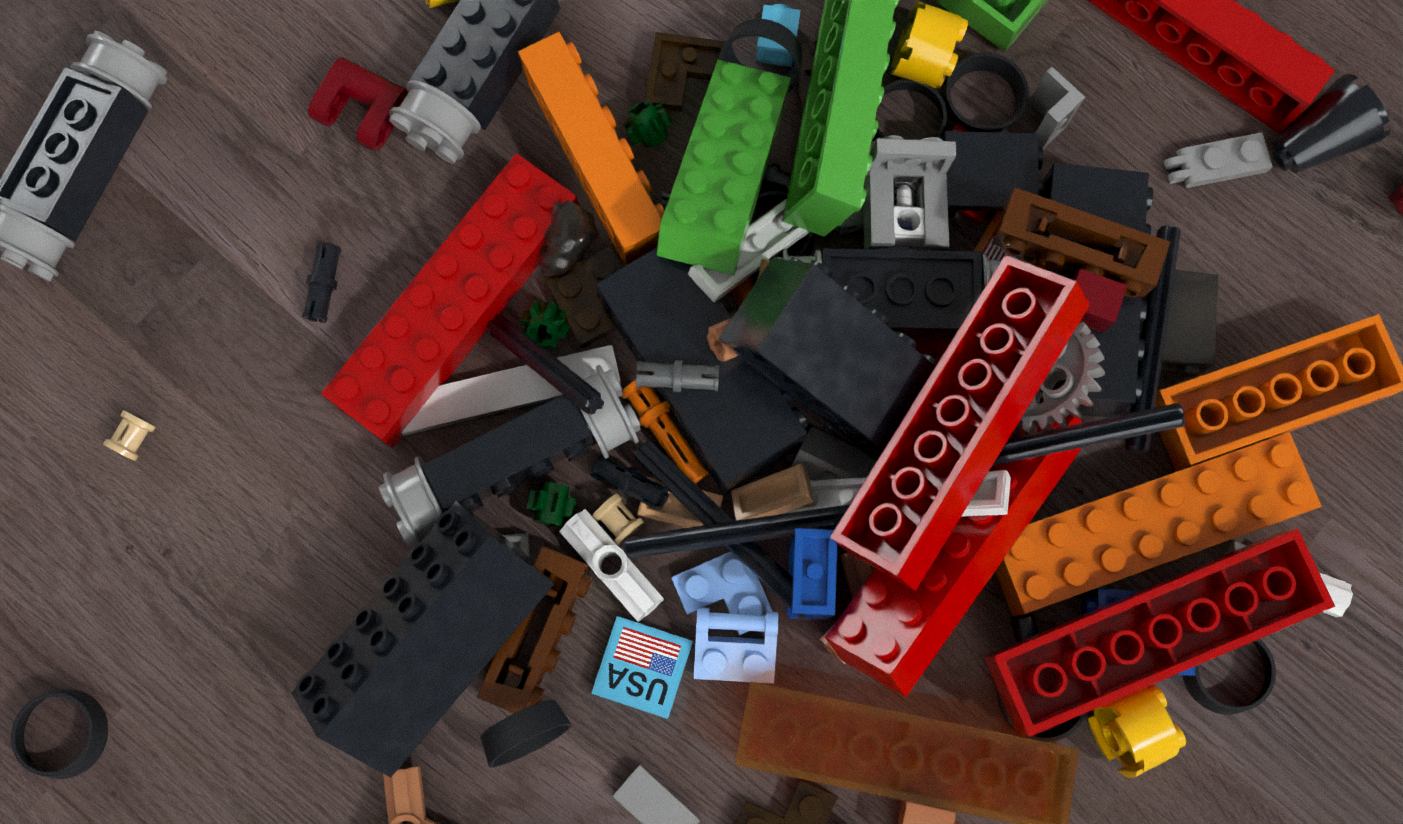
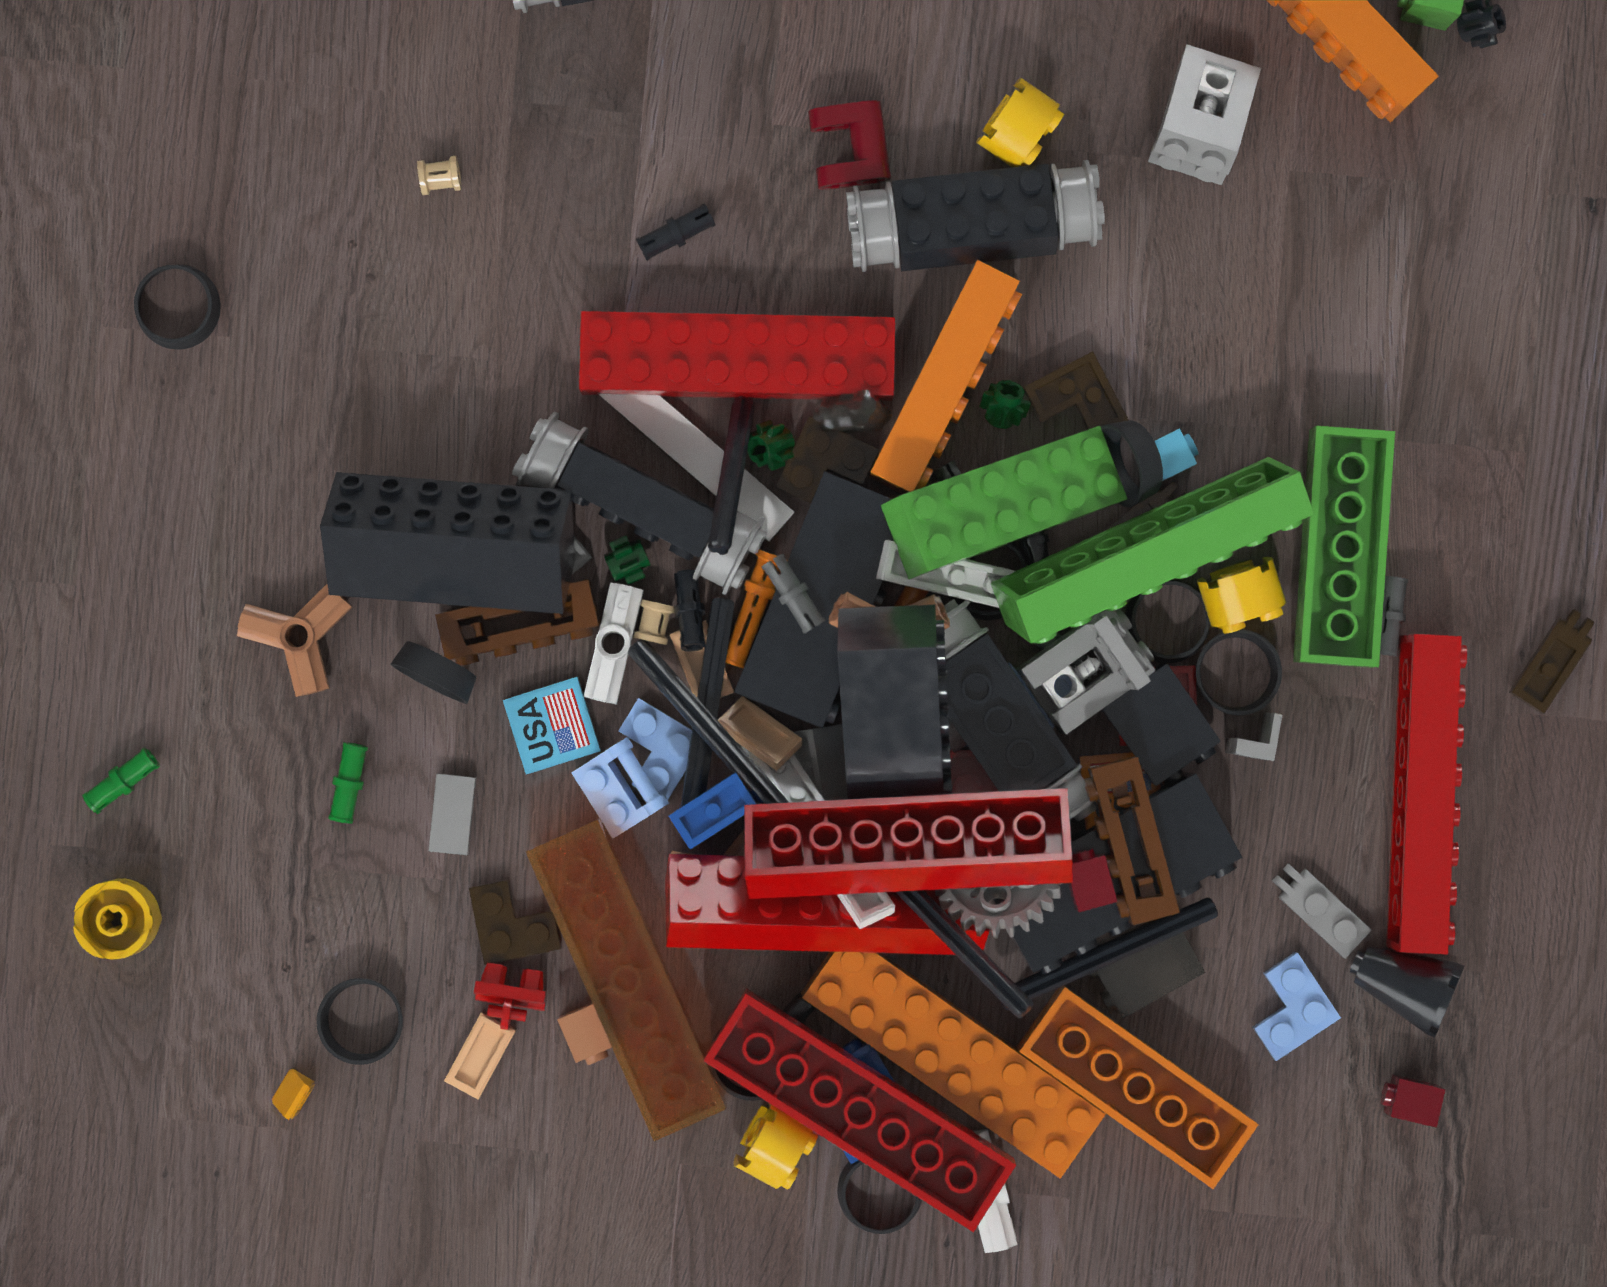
camera: 55 degrees right, 10 degrees up
(1293, 226) = (1305, 1008): none -> light blue plate

